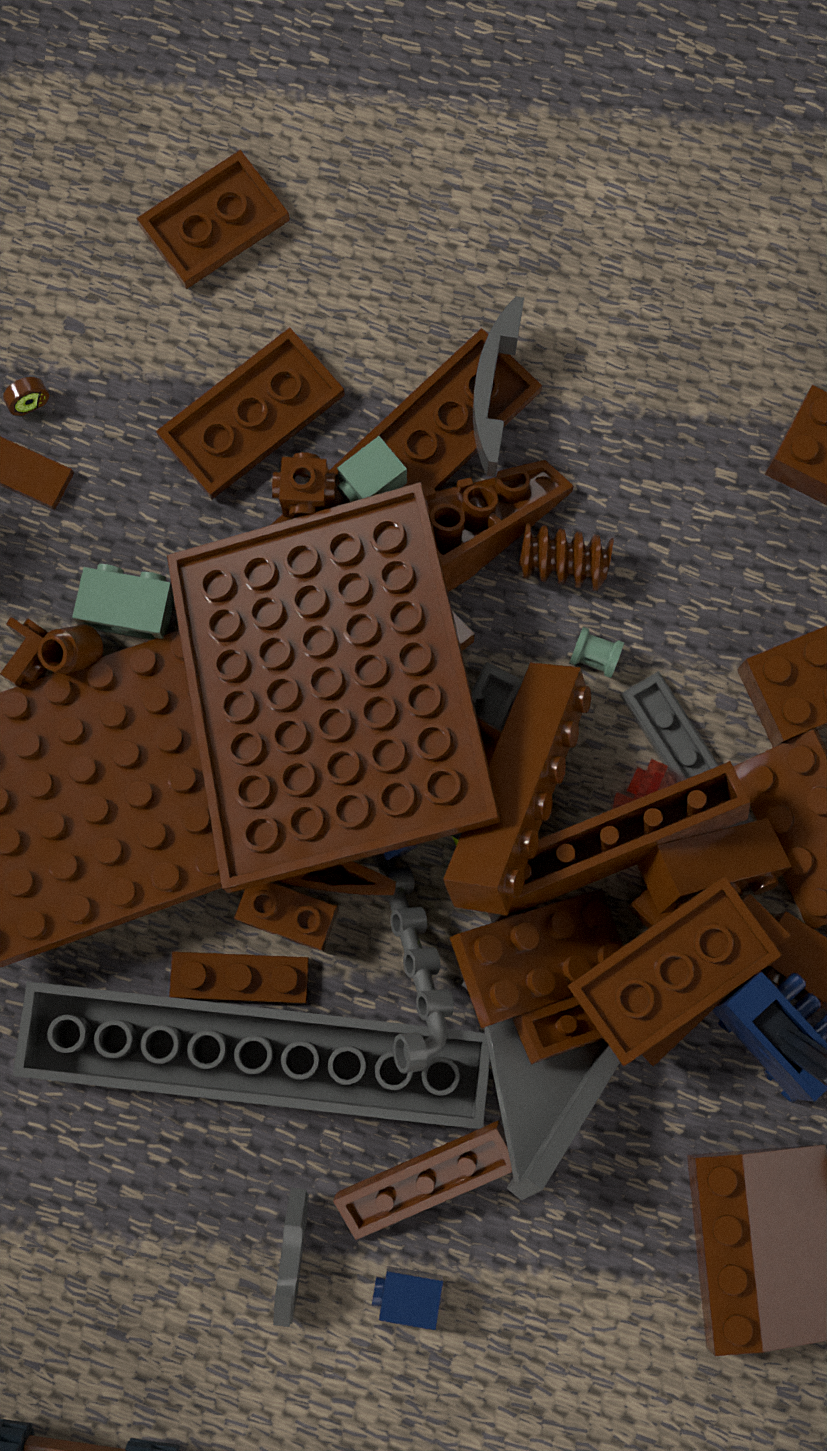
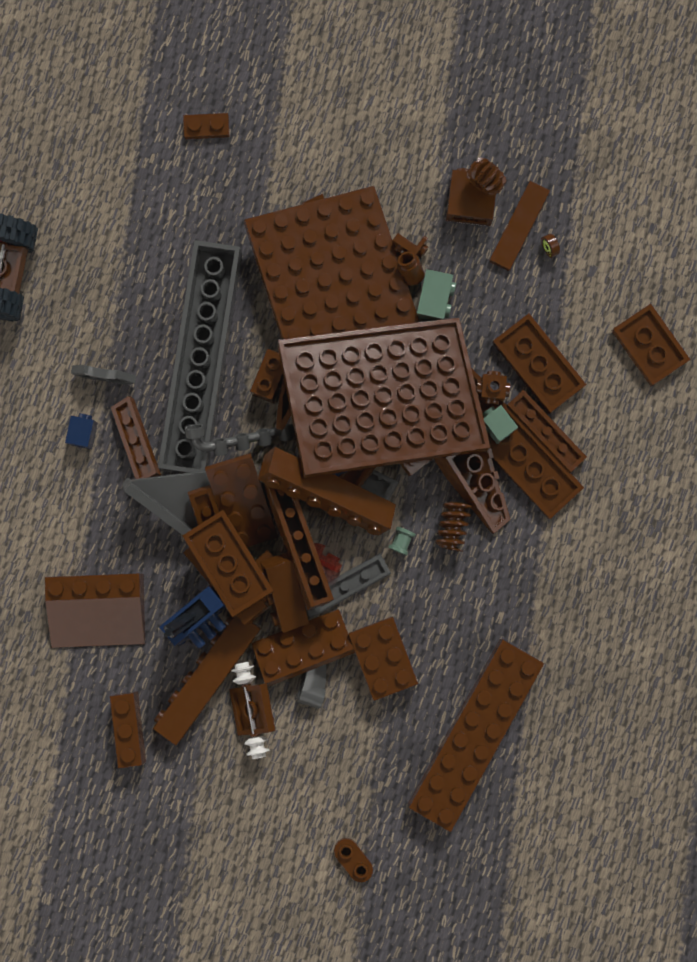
camera: 95 degrees right, 5 degrees up
(239, 977) = (240, 353): reddish brown plate -> none
(378, 395) = (546, 431): none -> reddish brown plate
(501, 339) = (576, 497): dark grey slope -> none

